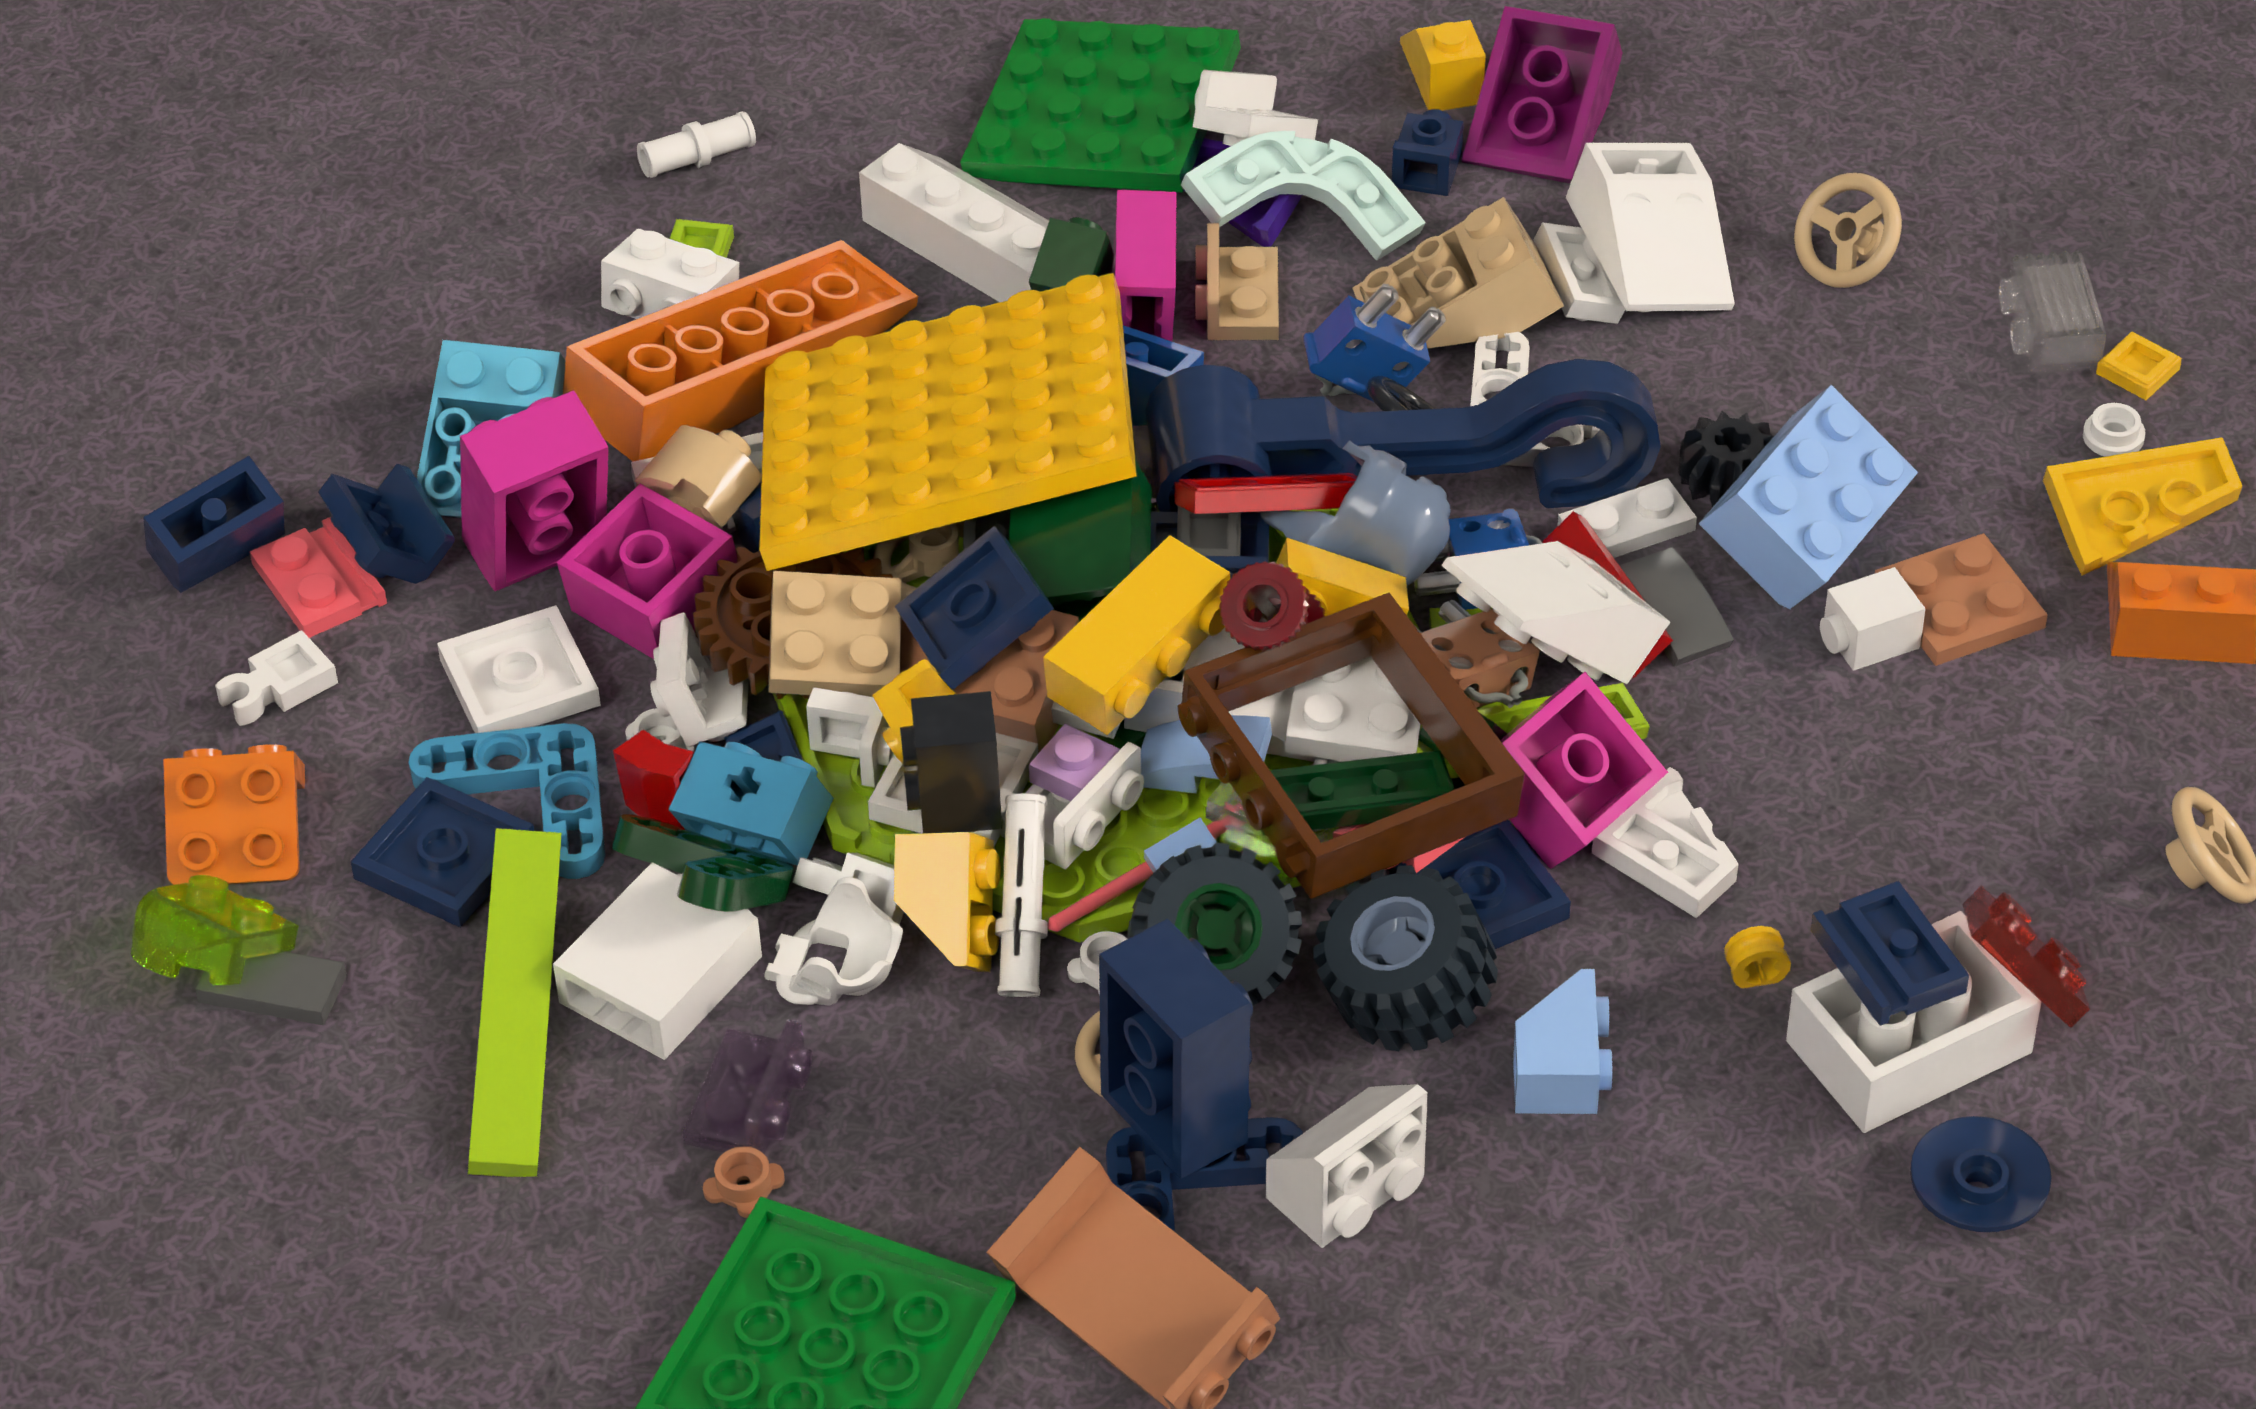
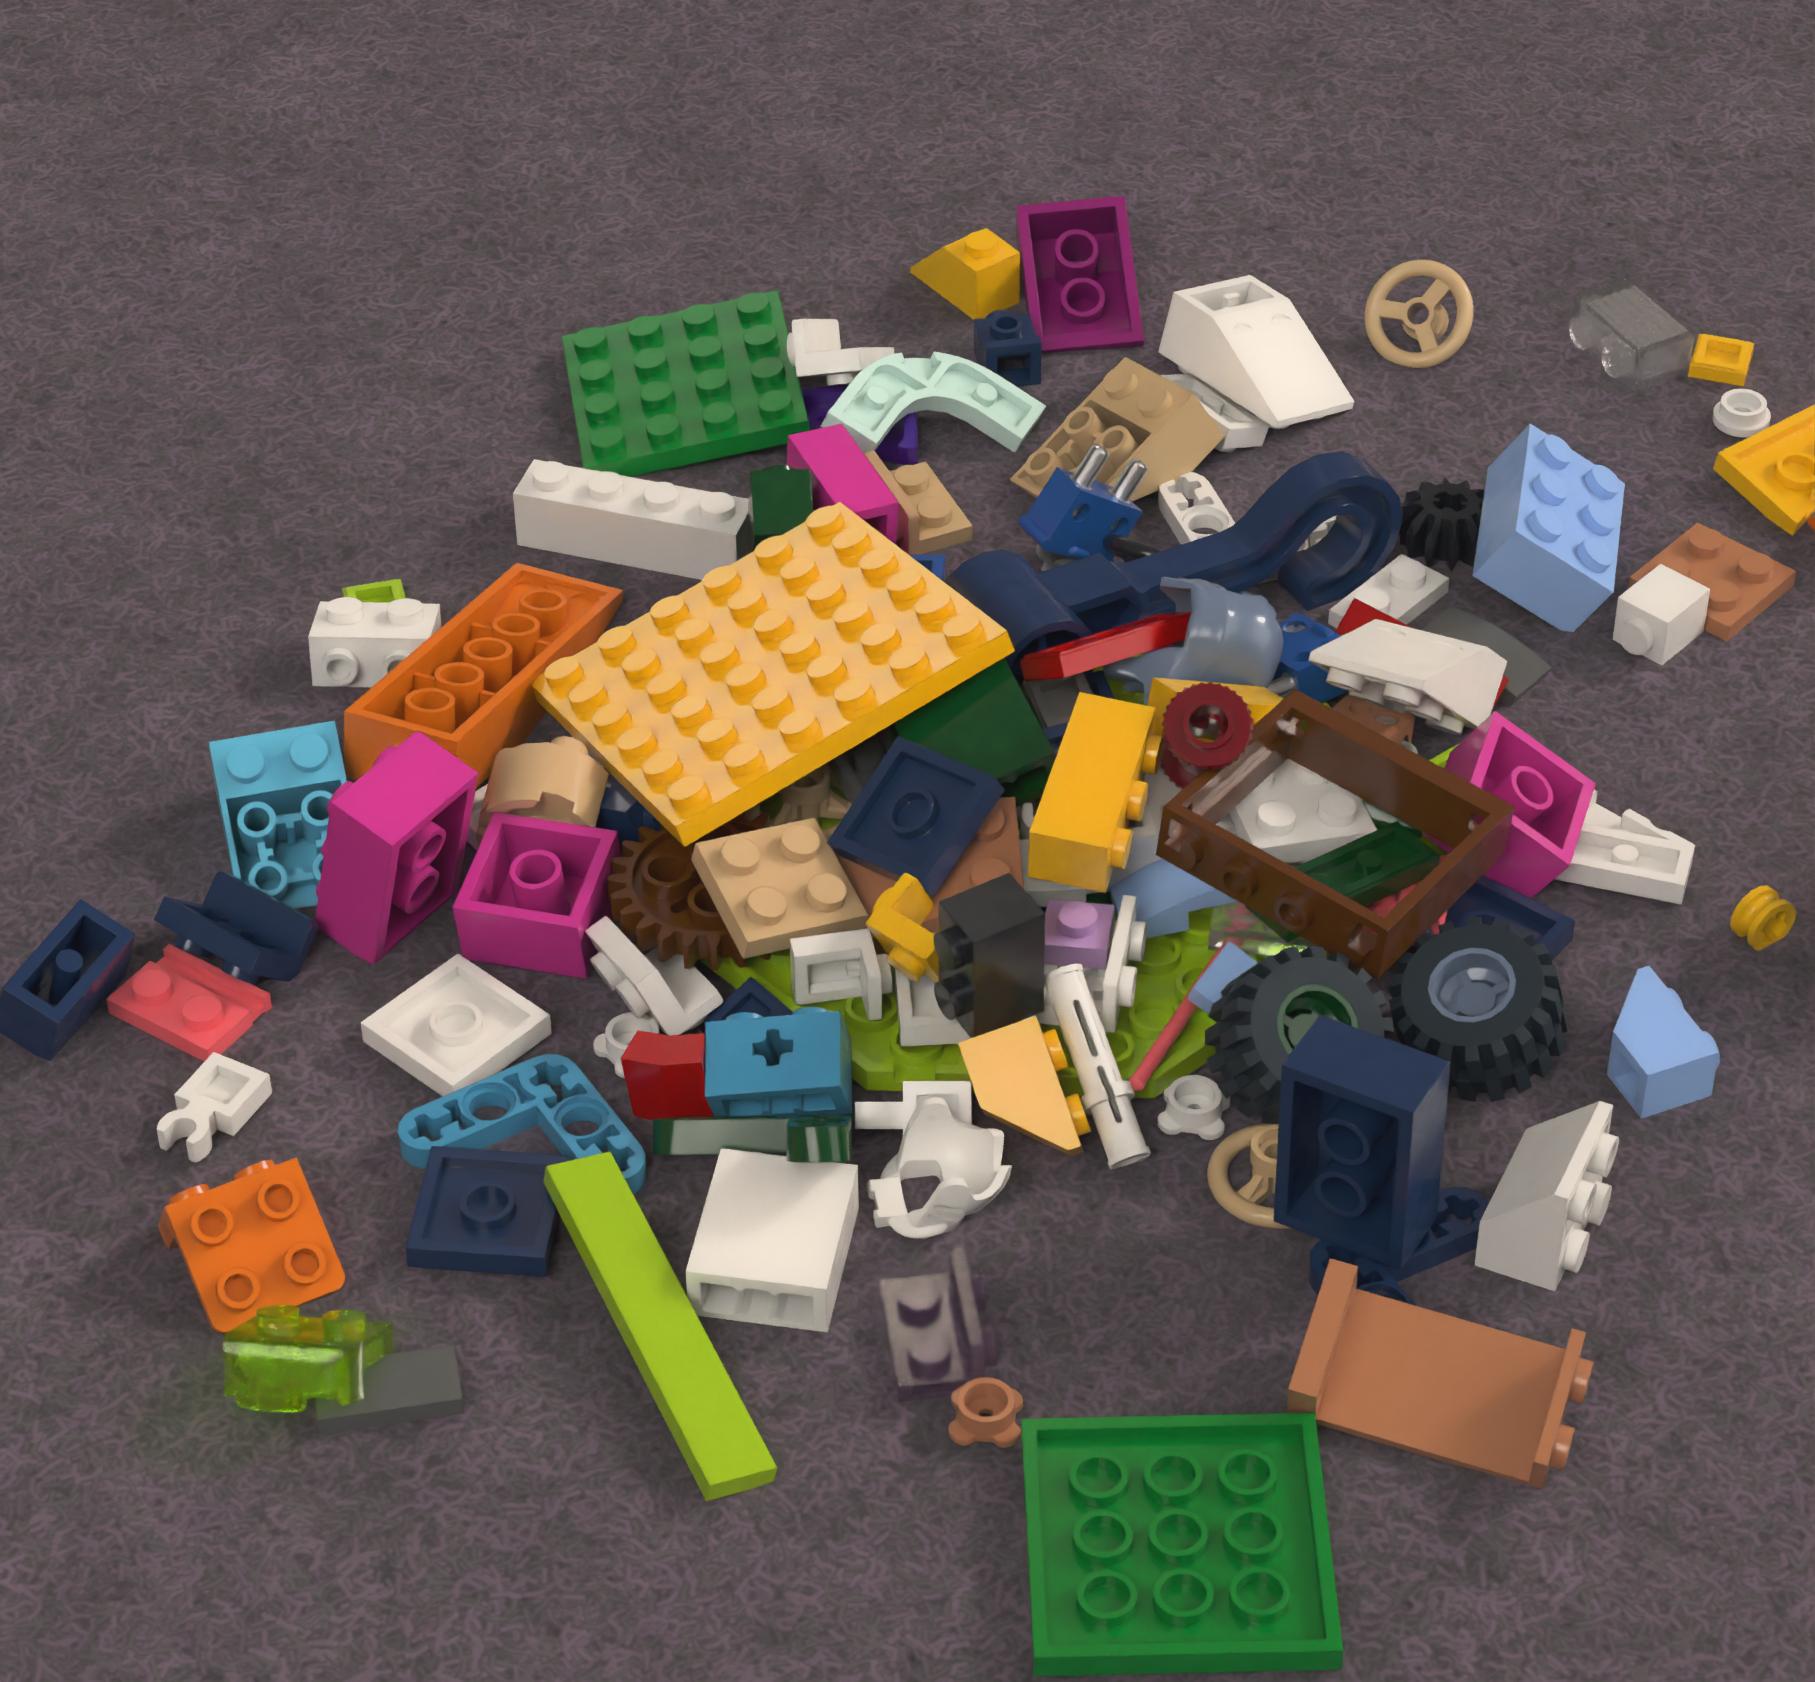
camera: 25 degrees left, 5 degrees down
(696, 144) = (318, 519): white pin -> none

